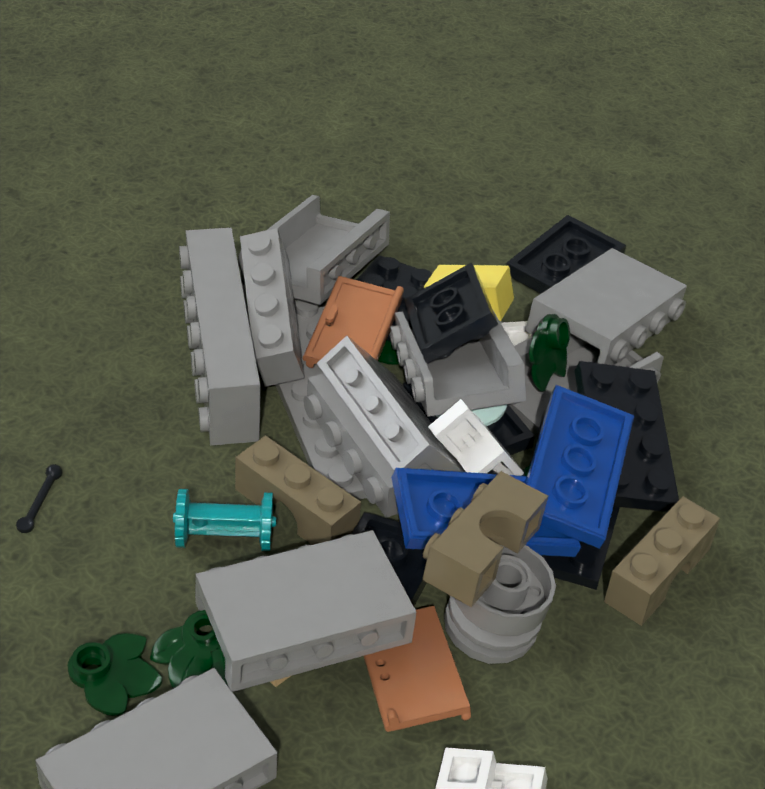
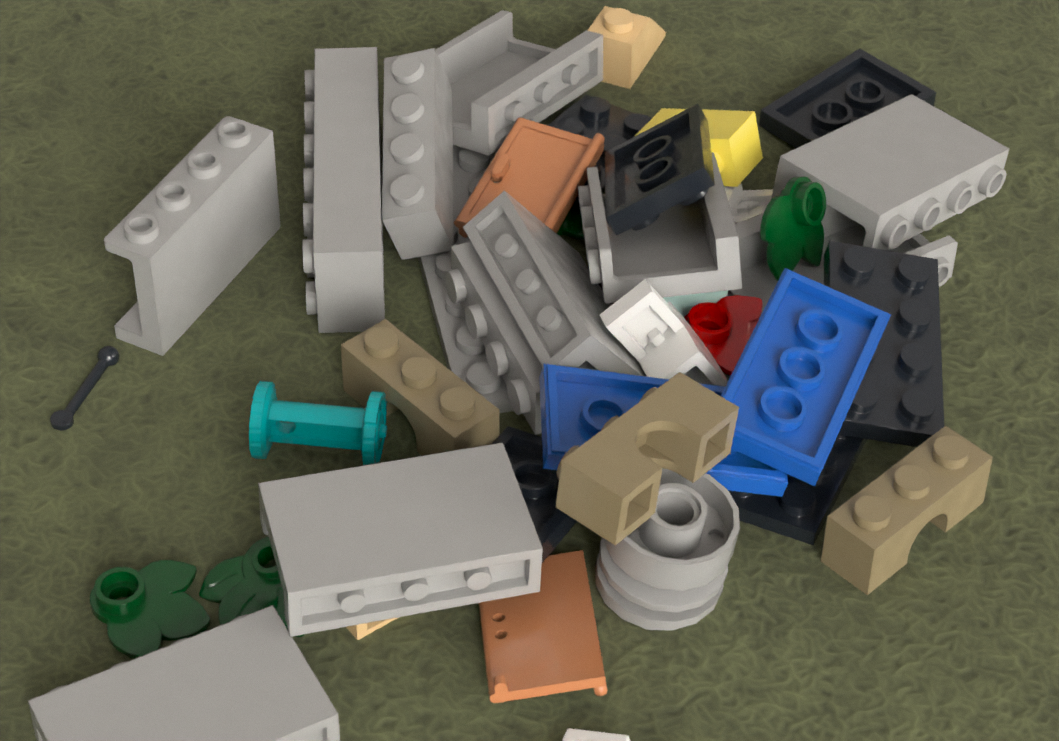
camera: 10 degrees right, 0 degrees up
(113, 374) = (197, 231): none -> light grey panel
(405, 216) = (627, 44): none -> tan slope
(516, 431) = (726, 327): none -> red plate

